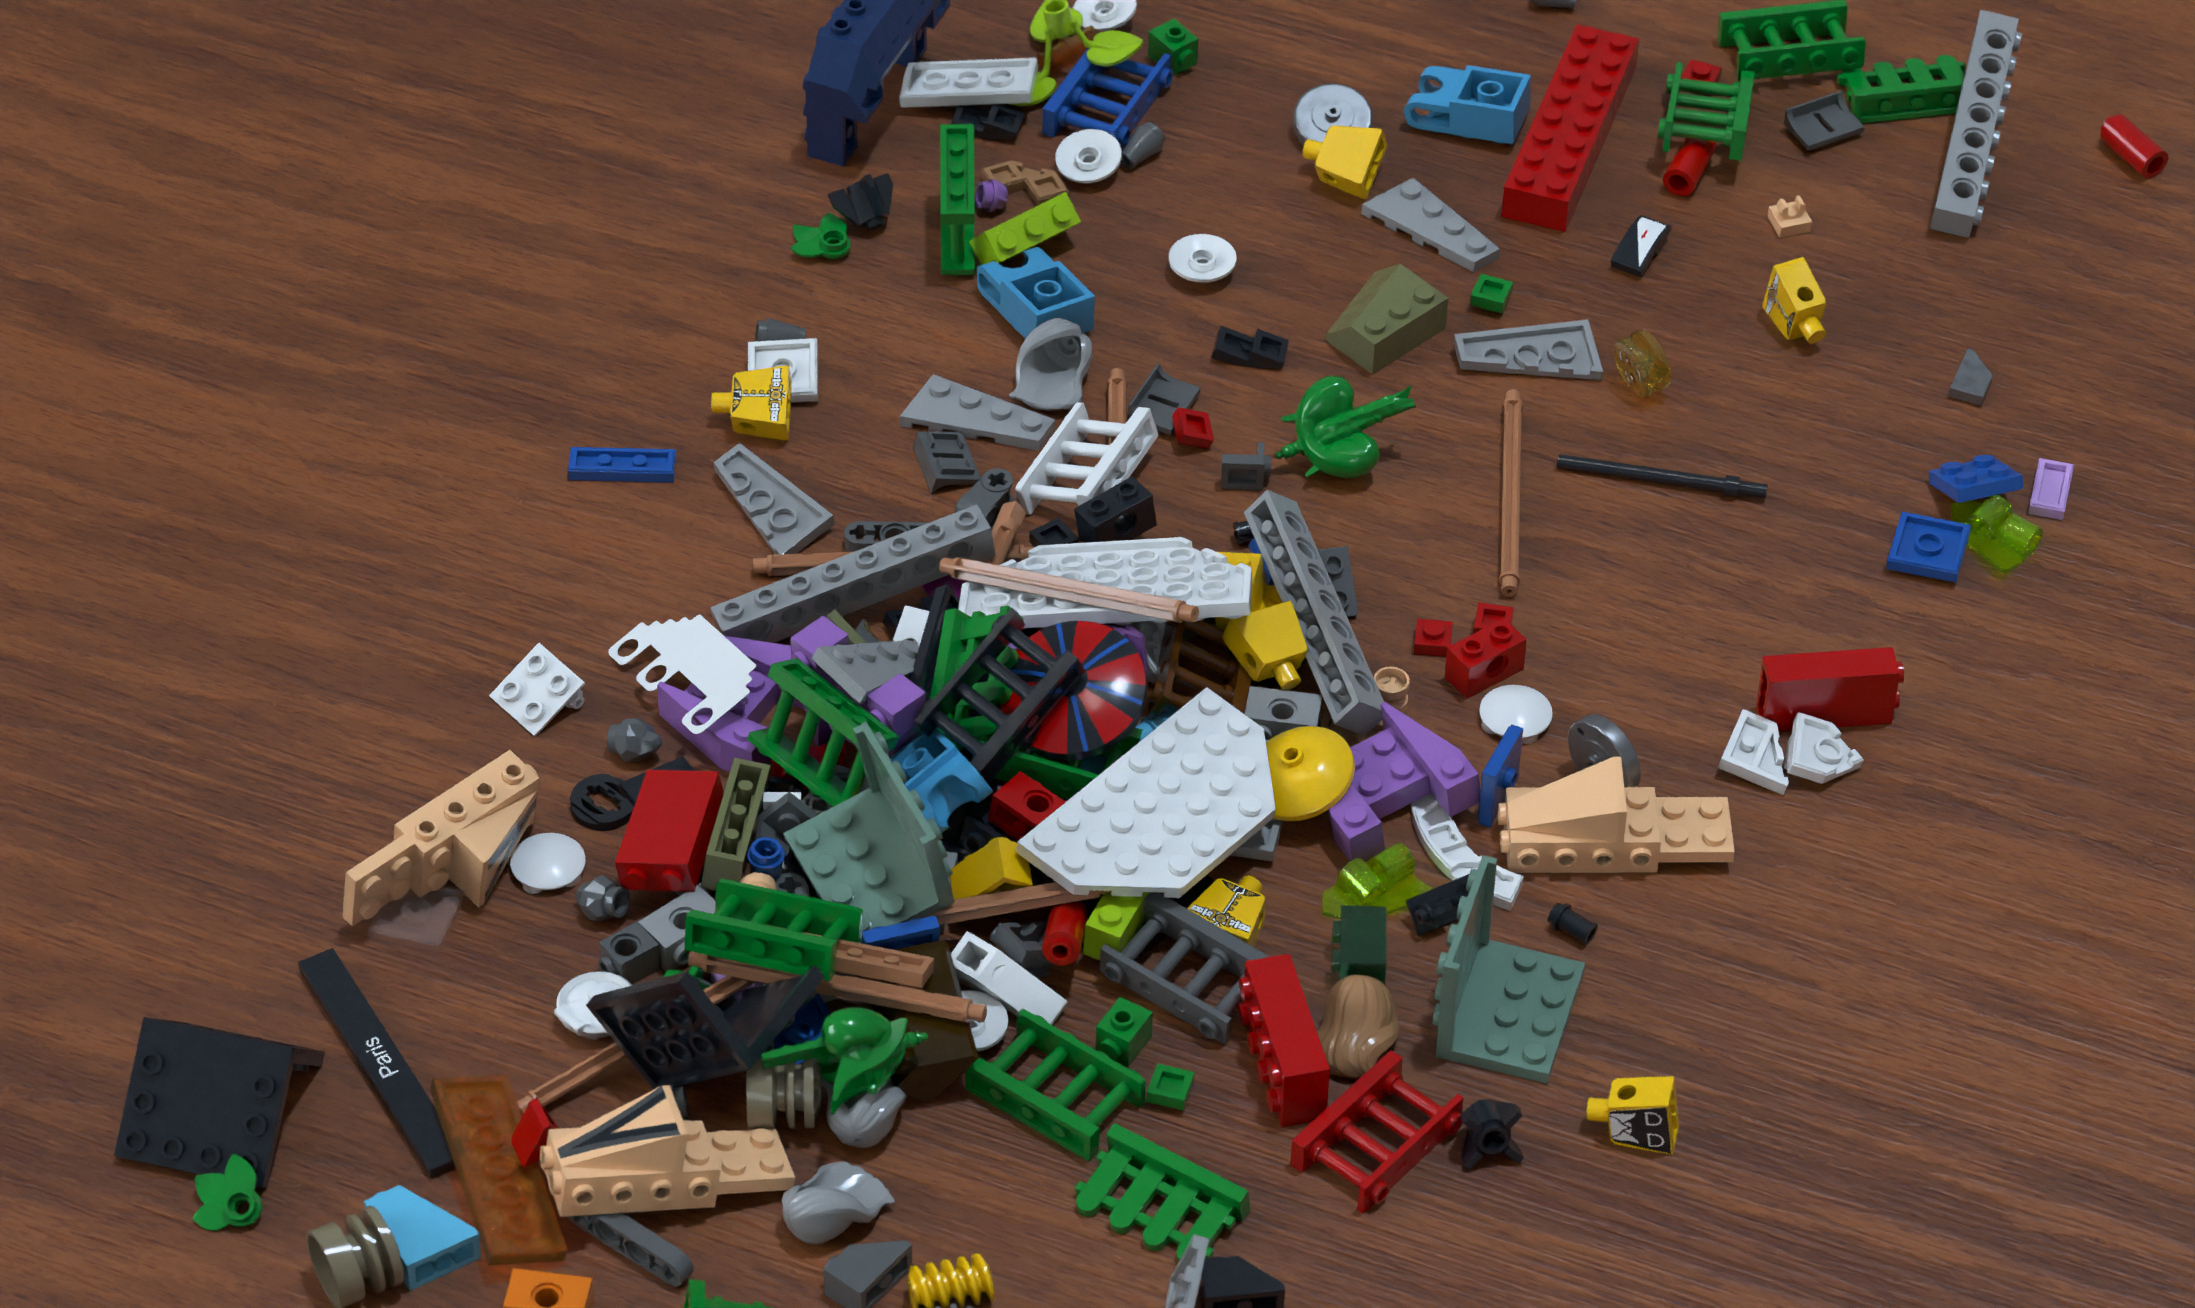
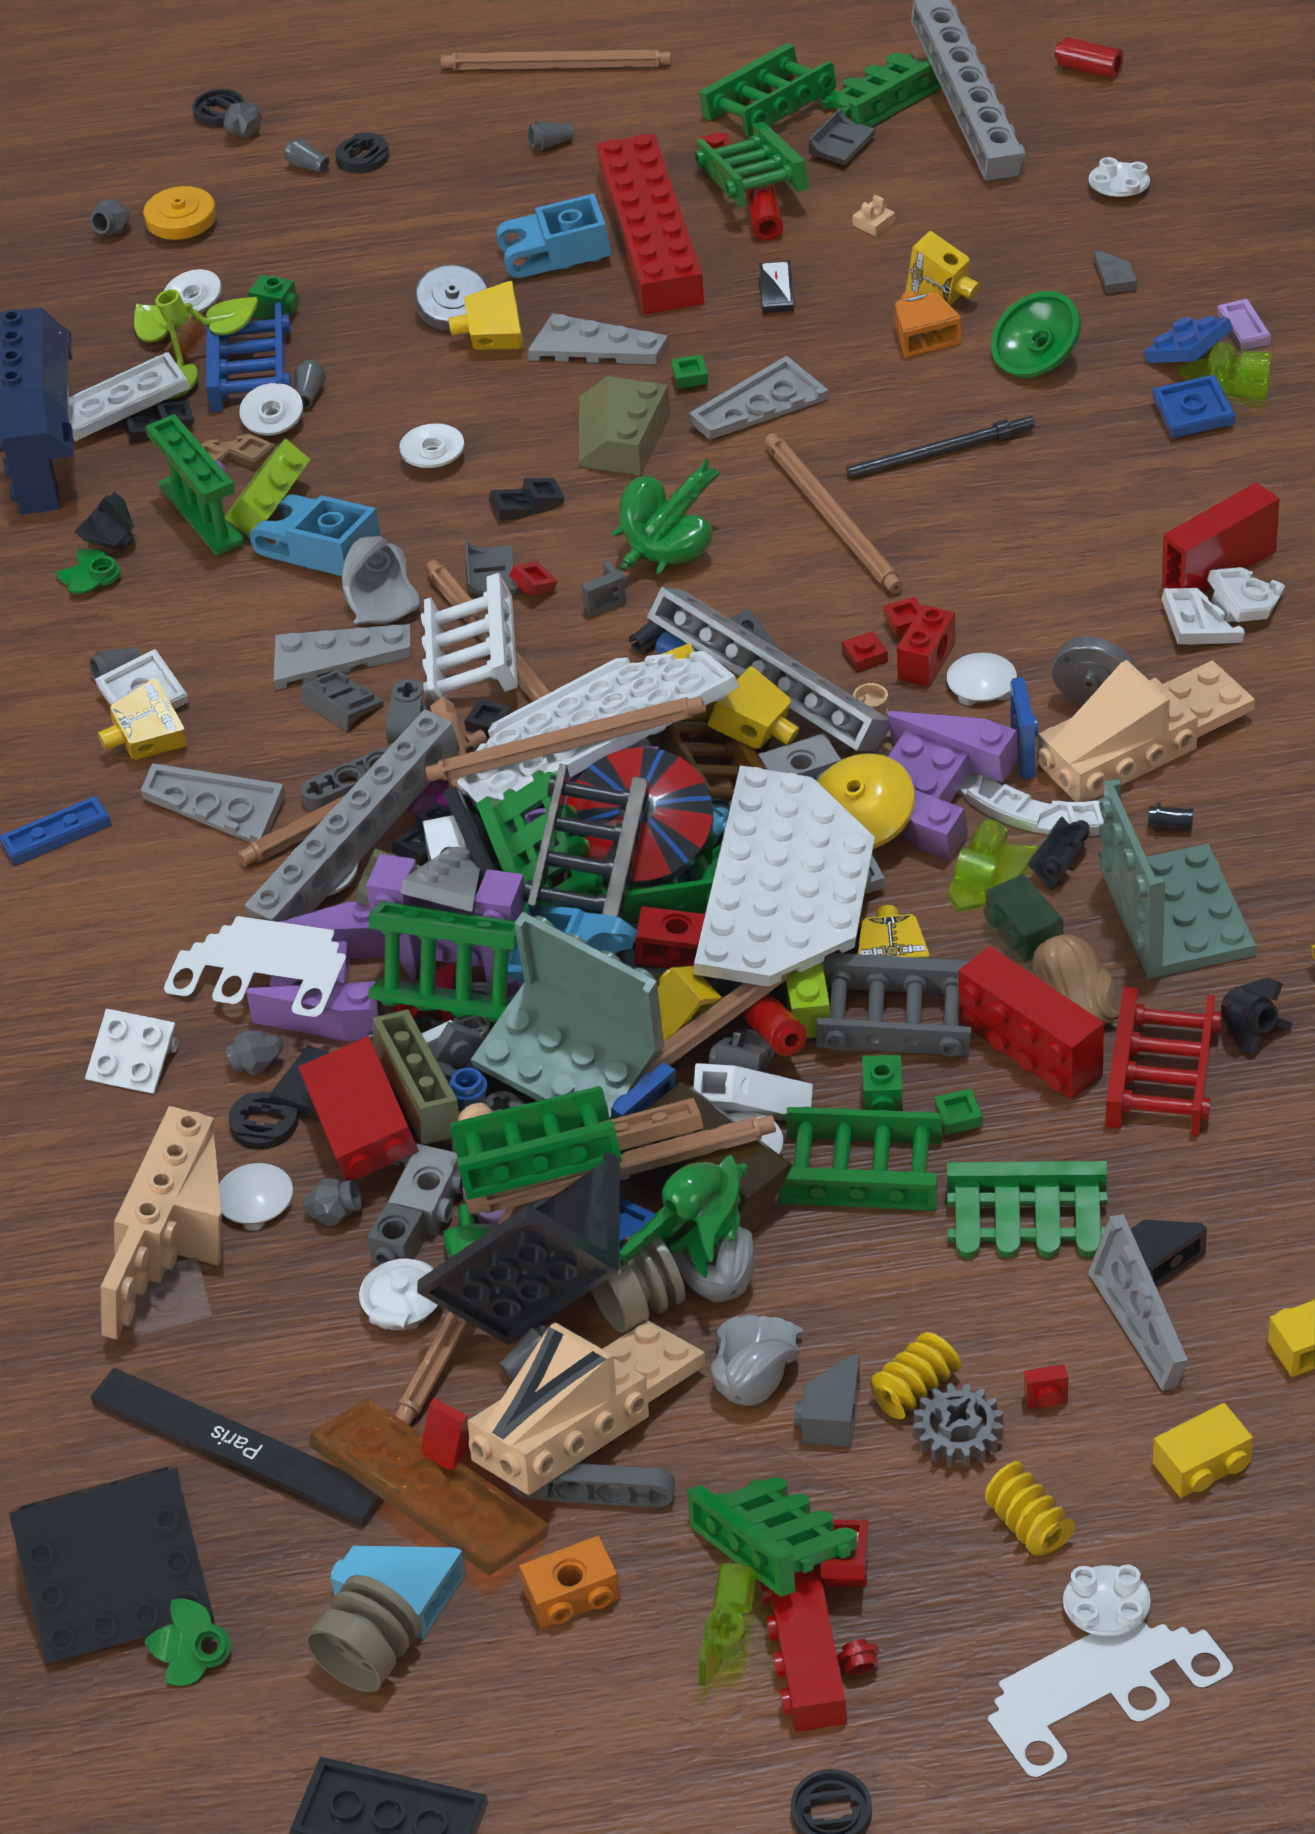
camera: 25 degrees left, 0 degrees up
(1116, 513) = (535, 669): black brick -> none
(1642, 363) = (860, 367): clear yellow head -> none
(1743, 346) = (925, 323): none -> orange torso
(1832, 406) = (1036, 334): none -> green dish
(2057, 284) = (1119, 178): none -> white dish

